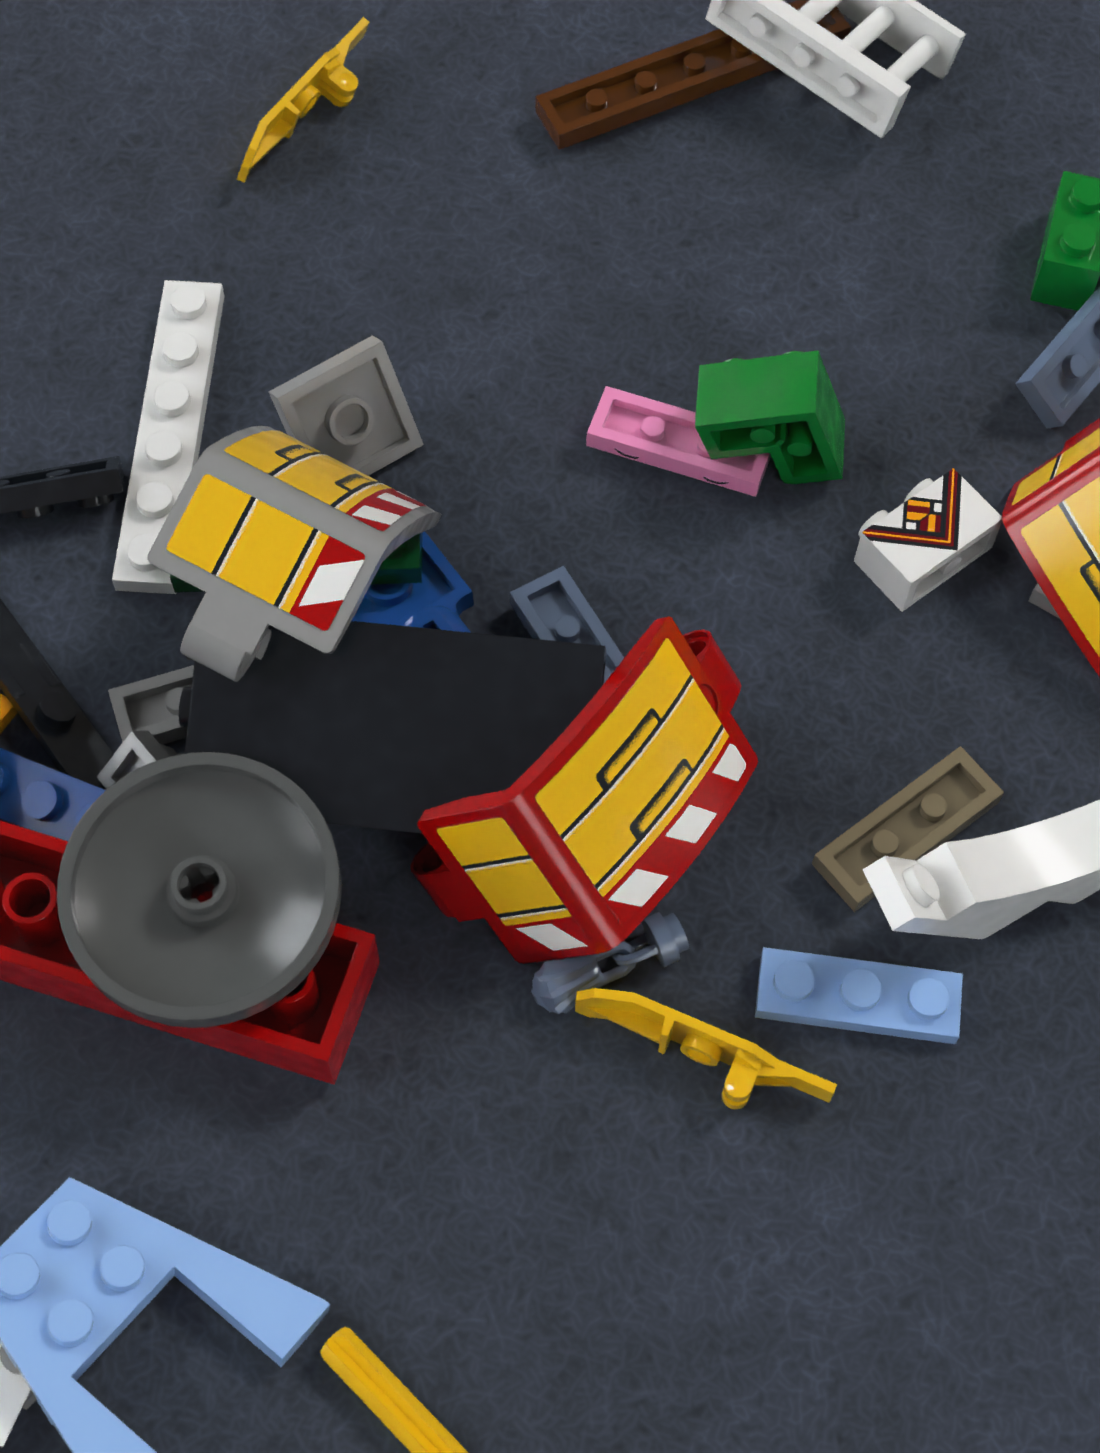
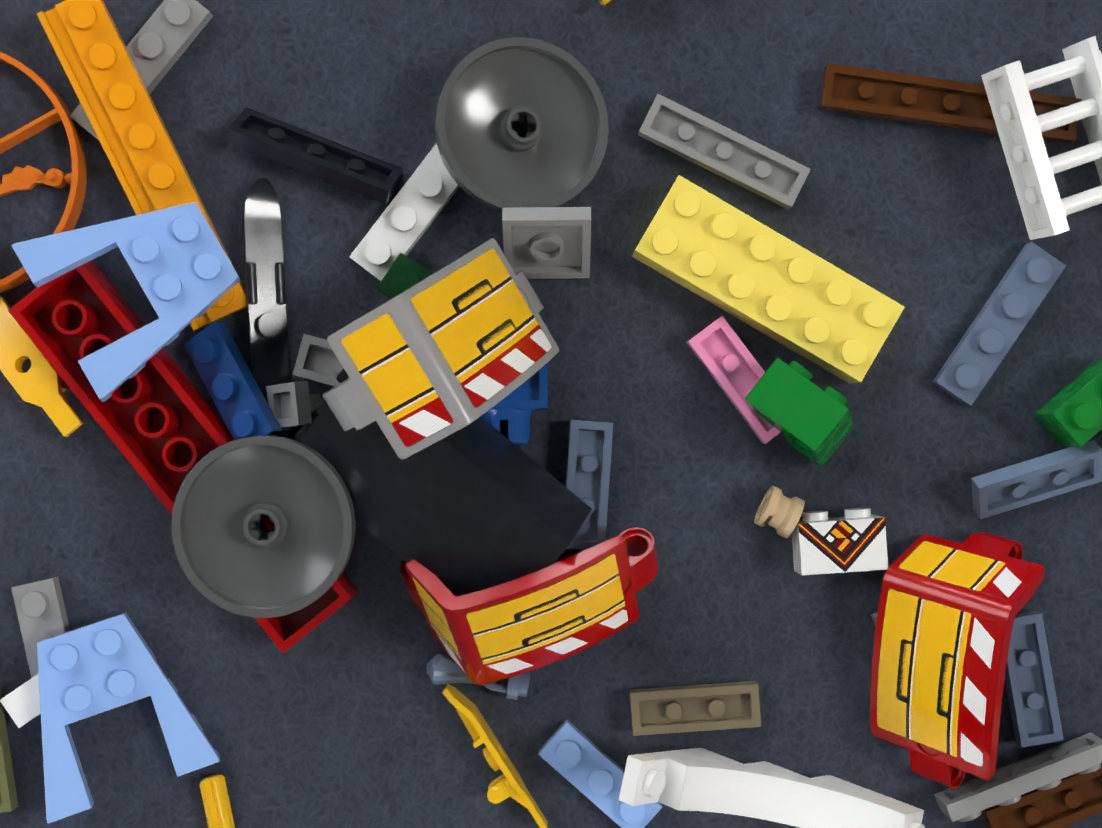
camera: 35 degrees right, 25 degrees up
(229, 315) = (527, 87): none -> dark grey dish
(485, 237) = (724, 152): none -> light grey plate
(621, 321) = (768, 281): none -> light yellow brick
(832, 547) = (779, 511): none -> tan wheel
(917, 237) = (999, 324): none -> sand blue plate

